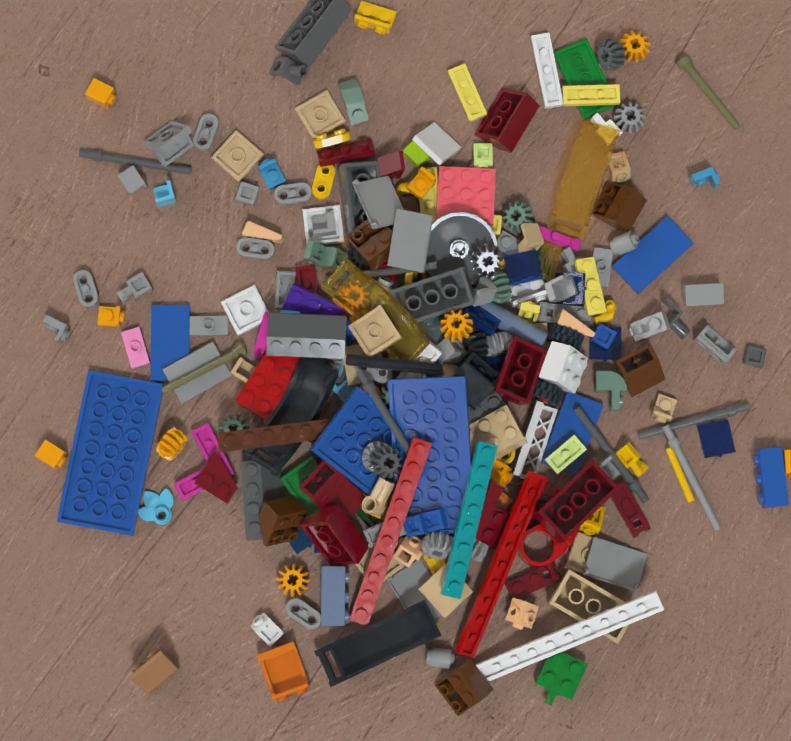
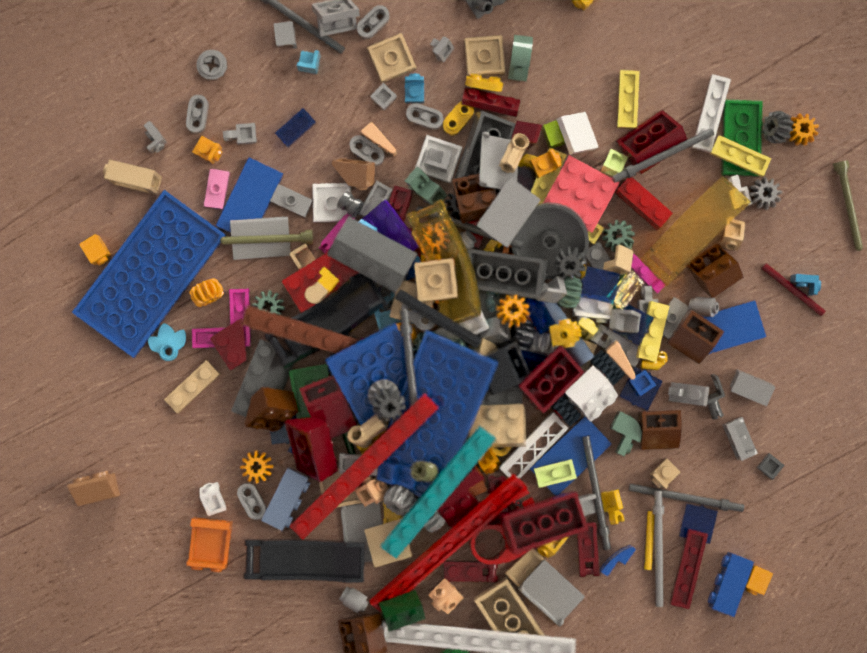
camera: 20 degrees right, 5 degrees up
(54, 372) = (132, 177): none -> tan window
(70, 234) = (207, 57): none -> light grey gear
(181, 259) = (295, 127): none -> clear blue plate
(199, 536) = (192, 386): none -> tan plate
(255, 272) = (356, 172): none -> medium nougat slope
(266, 303) = (350, 204): none -> dark grey wheel
(276, 387) = (322, 288): none -> leg
(279, 126) = (442, 48): none -> light grey tile
(389, 186) = (514, 153): none -> tan piece
(447, 506) = (424, 471): none -> olive wheel
(488, 645) = (402, 610): none -> dark green brick
(501, 153) = (631, 170): none -> dark grey bar
(508, 328) = (559, 335): none -> yellow brick
(525, 177) = (643, 203): none -> red brick
(630, 272) = (695, 336): none -> reddish brown slope
(661, 501) = (621, 555): none -> blue slope
(696, 190) = (793, 289): none -> dark red bar
(727, 482) = (688, 568): none -> dark red plate

